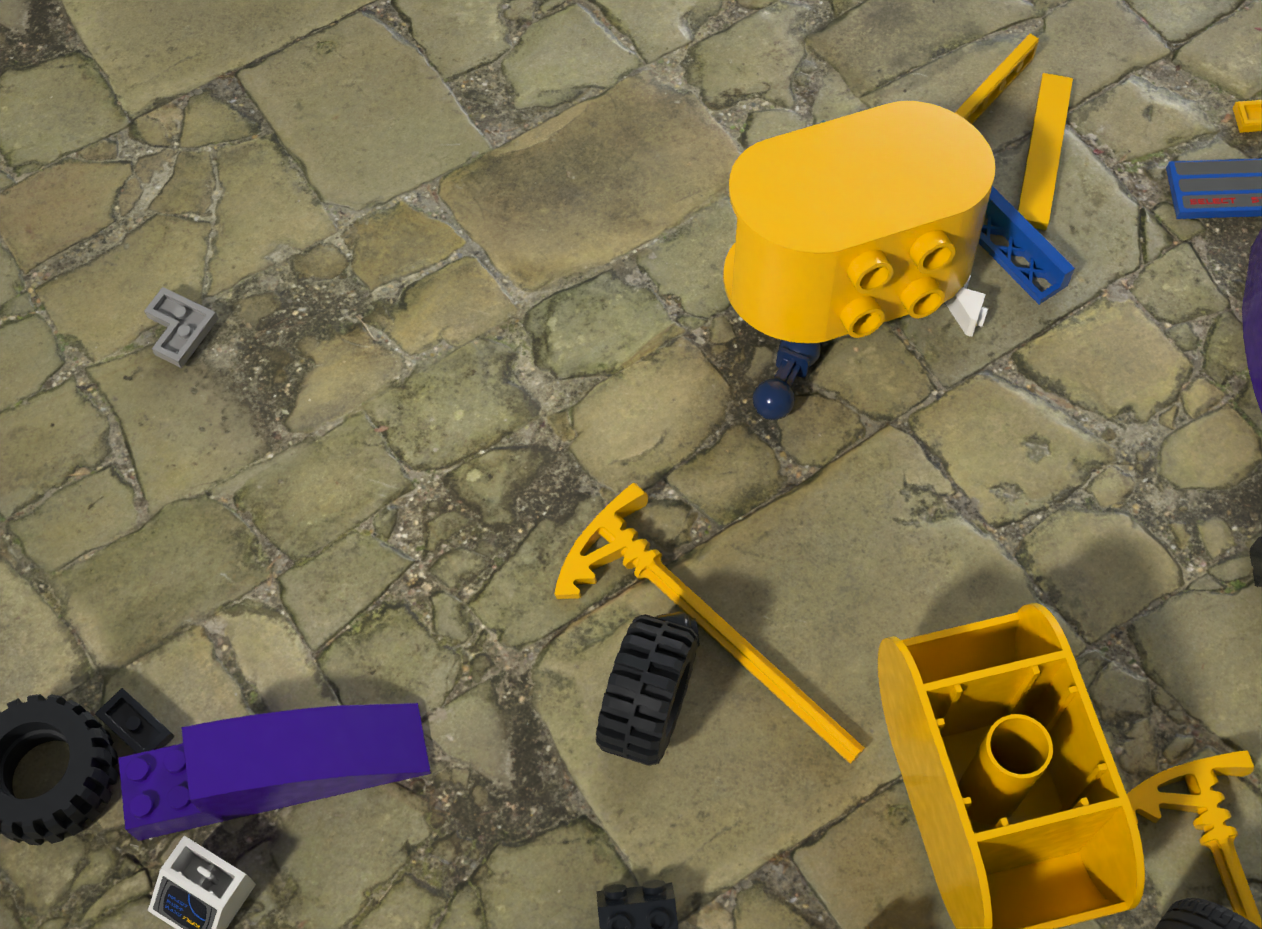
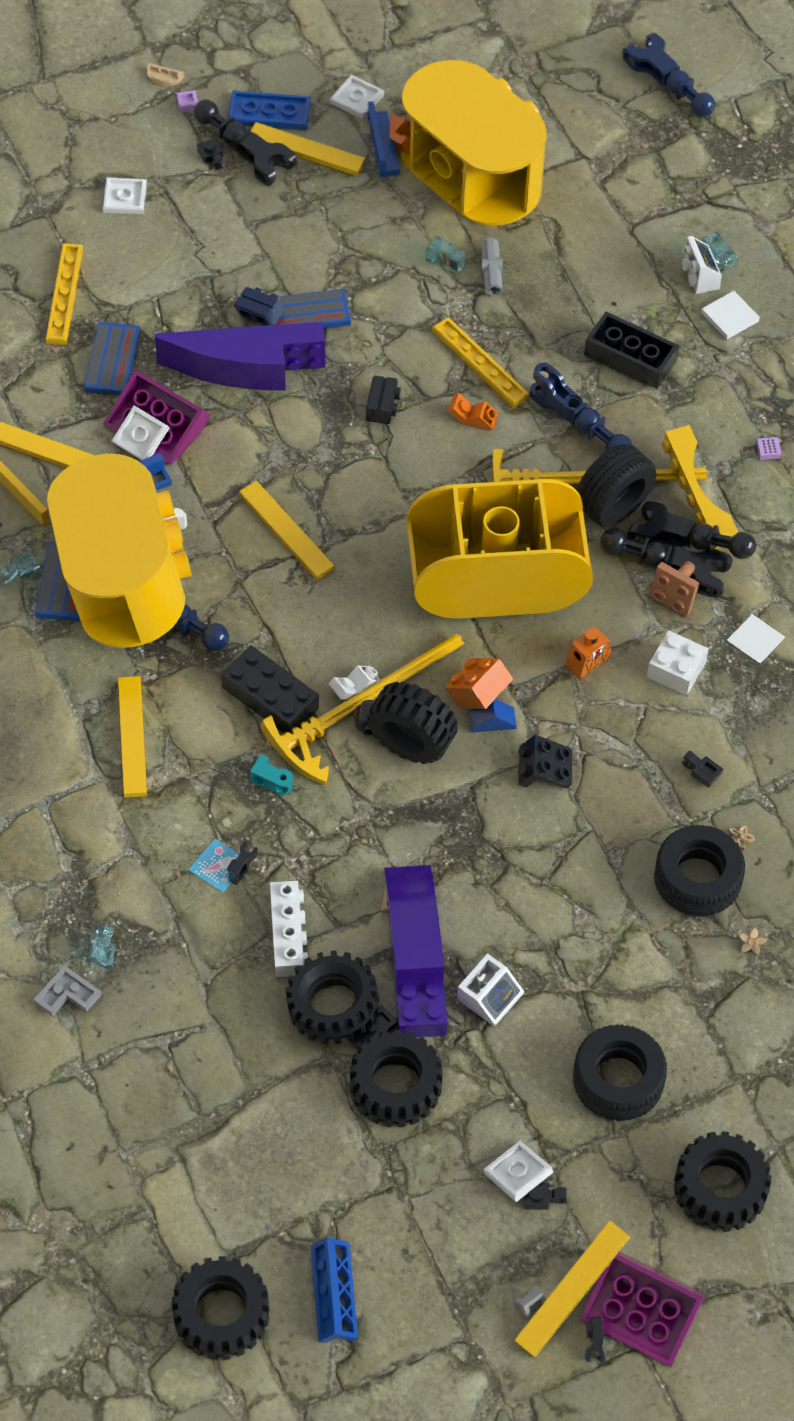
camera: 85 degrees left, 5 degrees down
(157, 618) = (327, 972): none -> black tyre
(243, 353) = (101, 949): none -> clear light blue plate
(292, 580) = (287, 927): none -> white brick
(392, 500) = (239, 866): none -> black plate
(400, 477) = (213, 865): none -> medium azure sticker
(548, 516) = (271, 777): none -> teal leg
(592, 330) = (132, 737): none -> yellow tile
(695, 488) = (269, 690): none -> black brick
(717, 832) = (493, 718): none -> blue slope
(739, 610) = (357, 681): none -> white slope
(760, 791) = (478, 683): none -> orange brick
(997, 468) = (286, 530): none -> yellow tile
(1106, 242) = (140, 434): none -> white tile
(1146, 259) = (176, 412): none -> magenta slope

